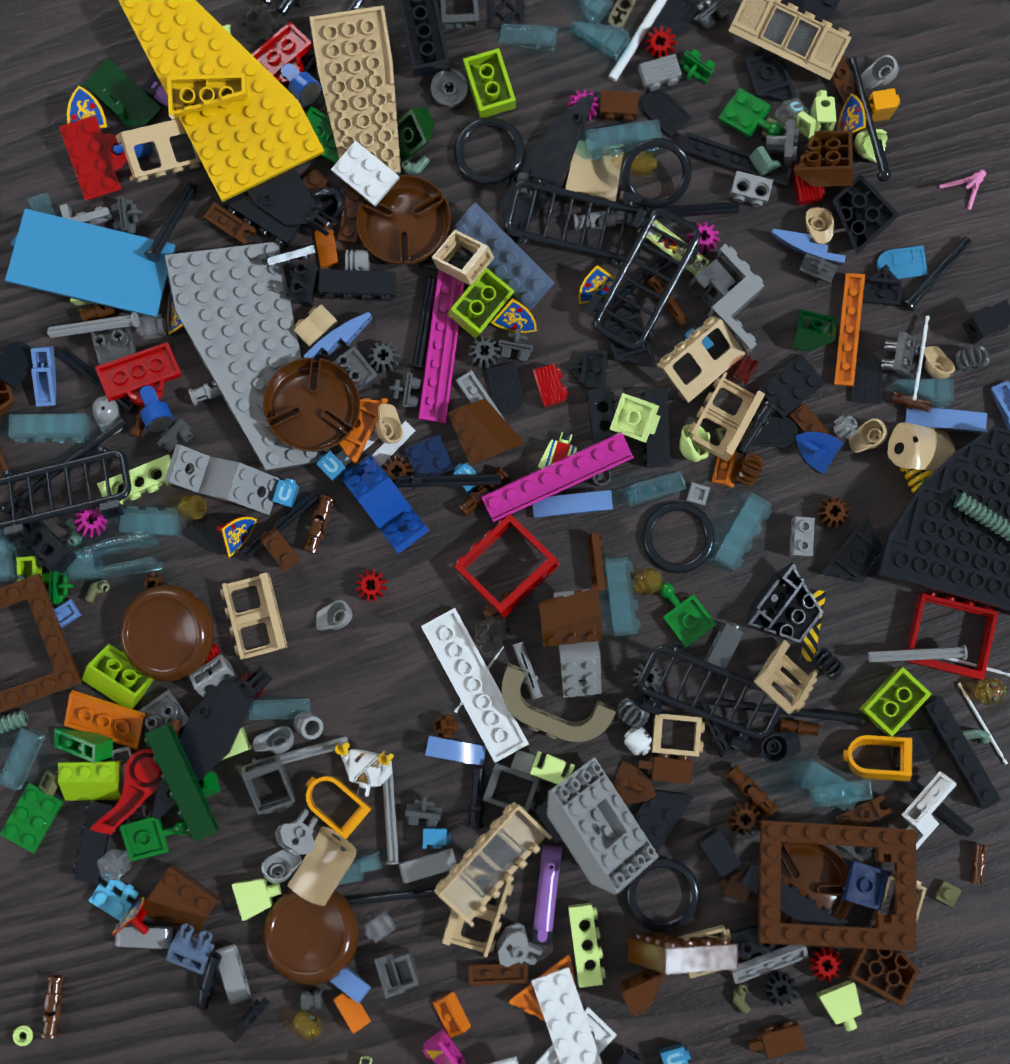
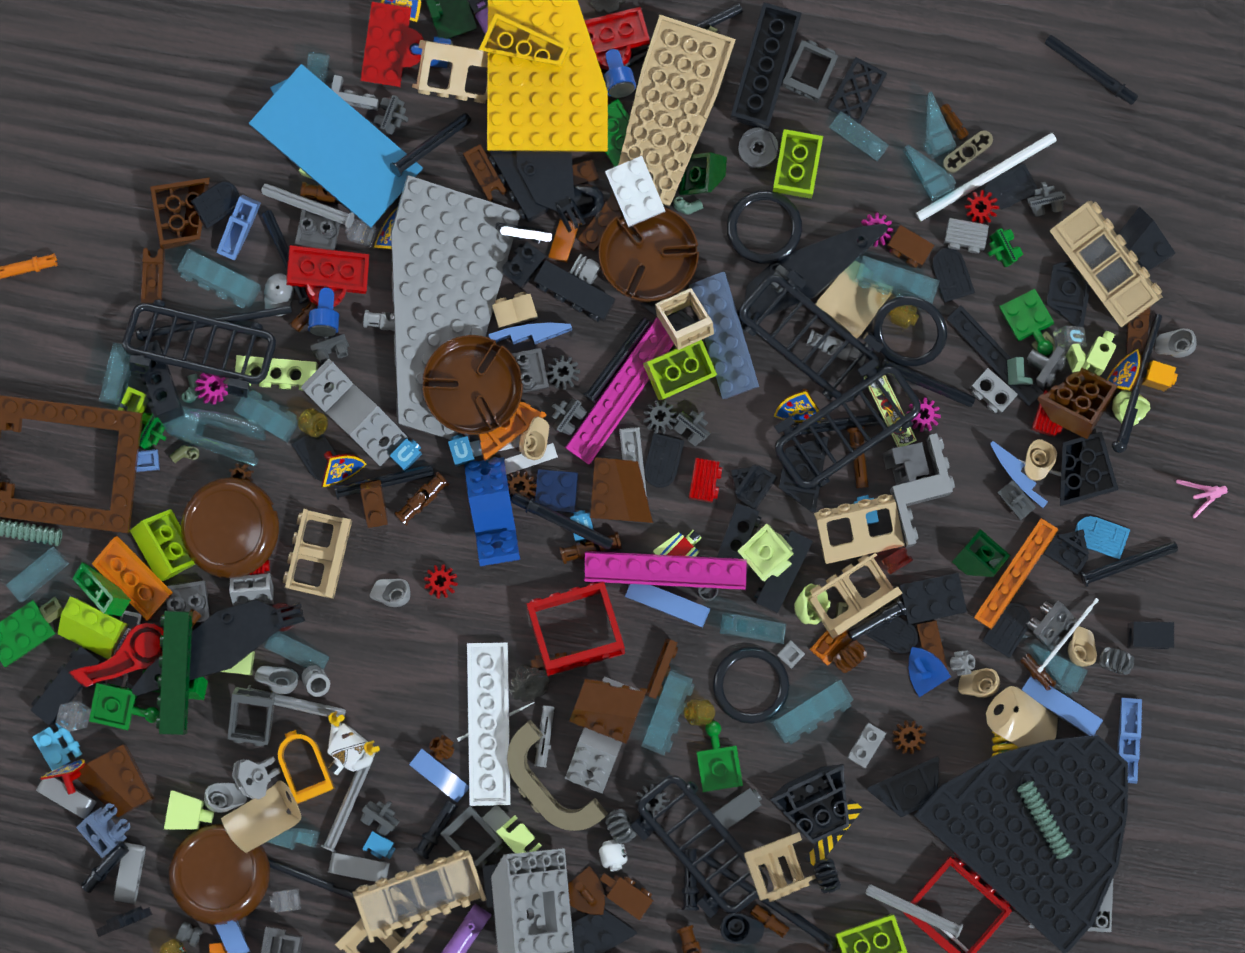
camera: 30 degrees right, 0 degrees up
(515, 316) = (705, 398): shield -> none
(657, 732) = (666, 888): tan window -> none

